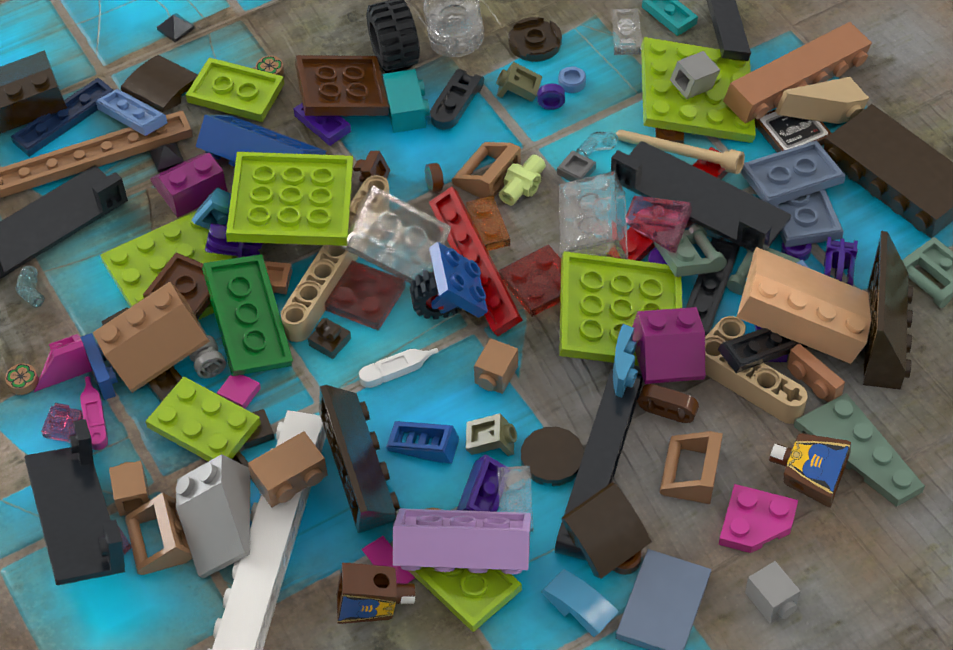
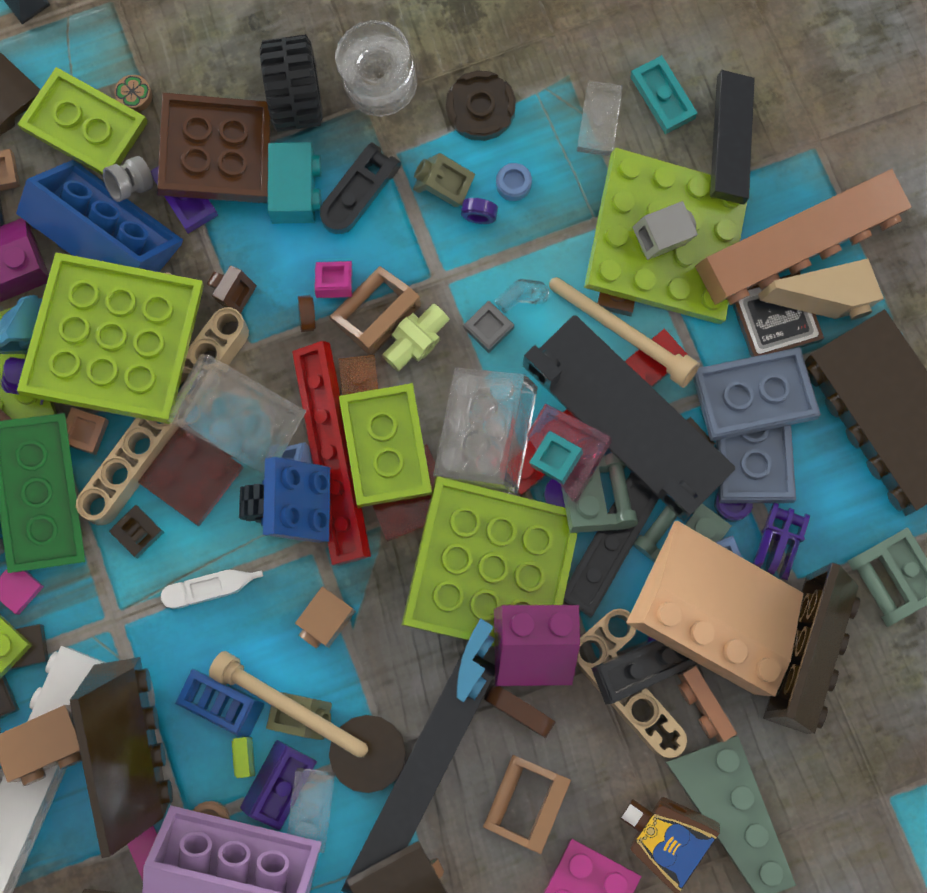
camera: 10 degrees right, 25 degrees up
(278, 114) = (127, 178): none -> light grey wheel
(425, 412) = (228, 670): none -> tan piece
(450, 154) = (333, 279): none -> dark pink tile
(451, 470) = (243, 757): none -> lime tile
(517, 241) = (385, 445): none -> lime plate
(653, 218) = (556, 457): none -> teal plate

